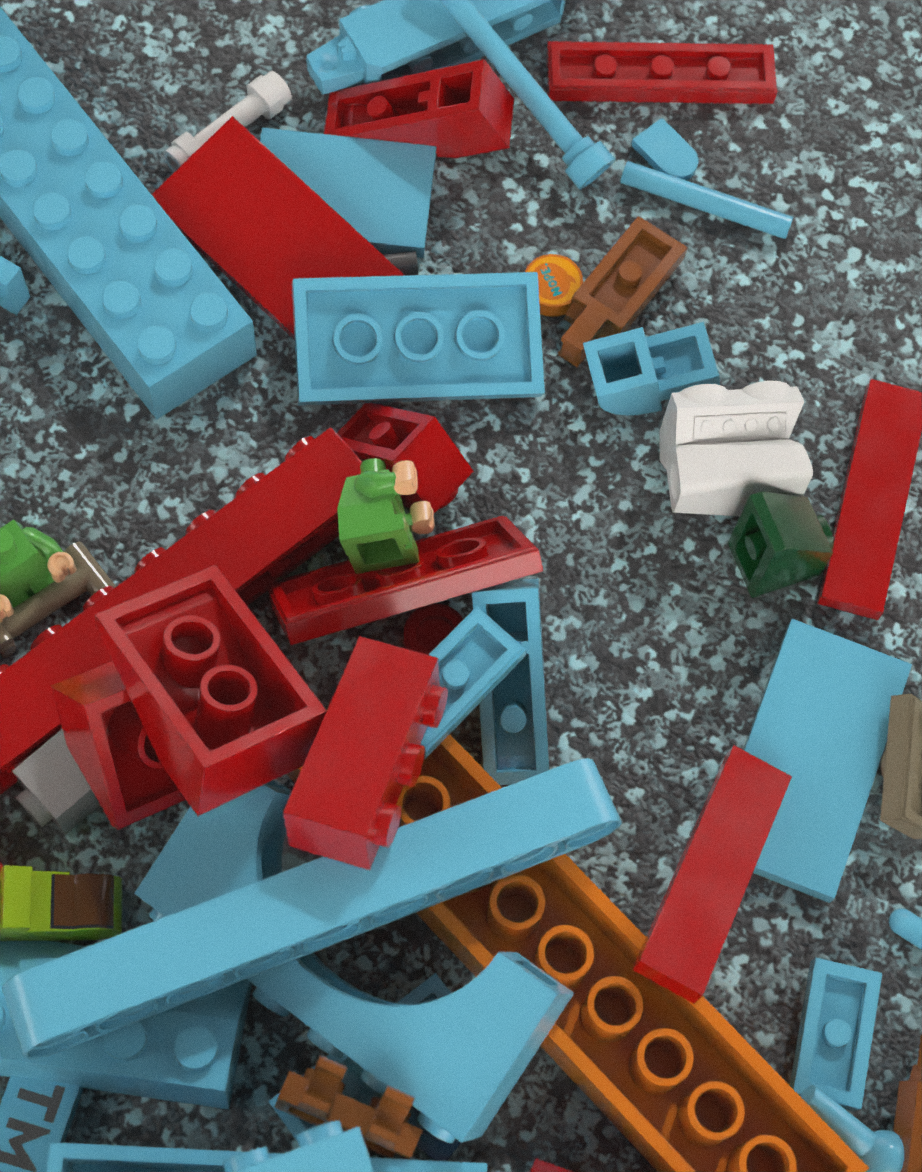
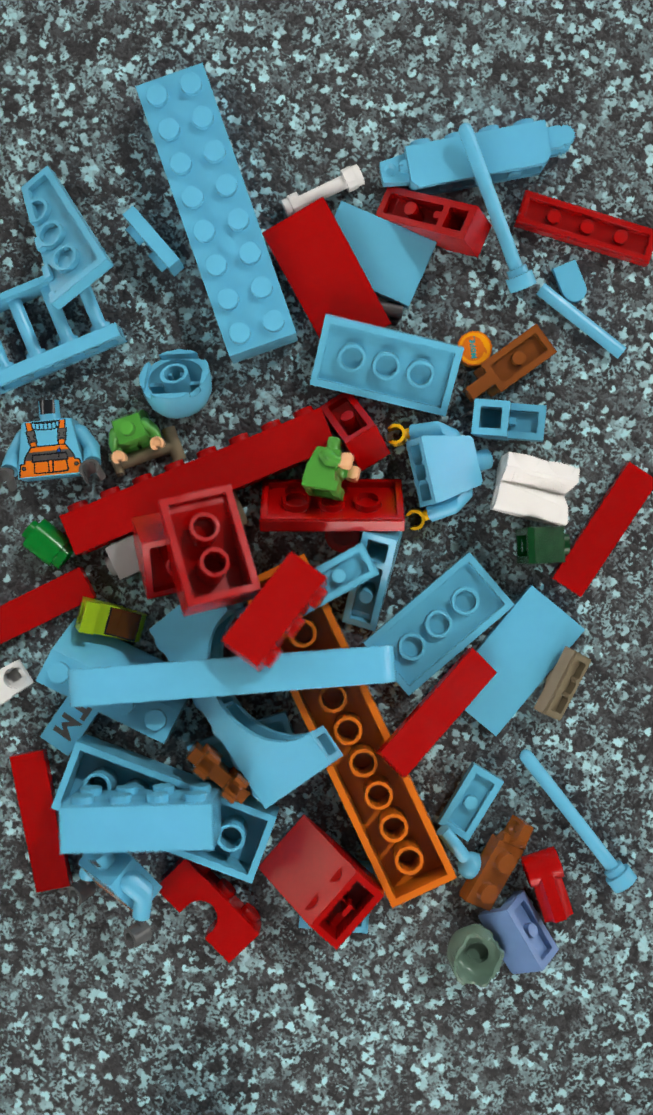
camera: 20 degrees right, 20 degrees up
(71, 463) = (176, 383): none -> medium azure cylinder
(569, 468) = (442, 467): none -> medium azure torso
(667, 723) = (441, 621): none -> medium azure plate

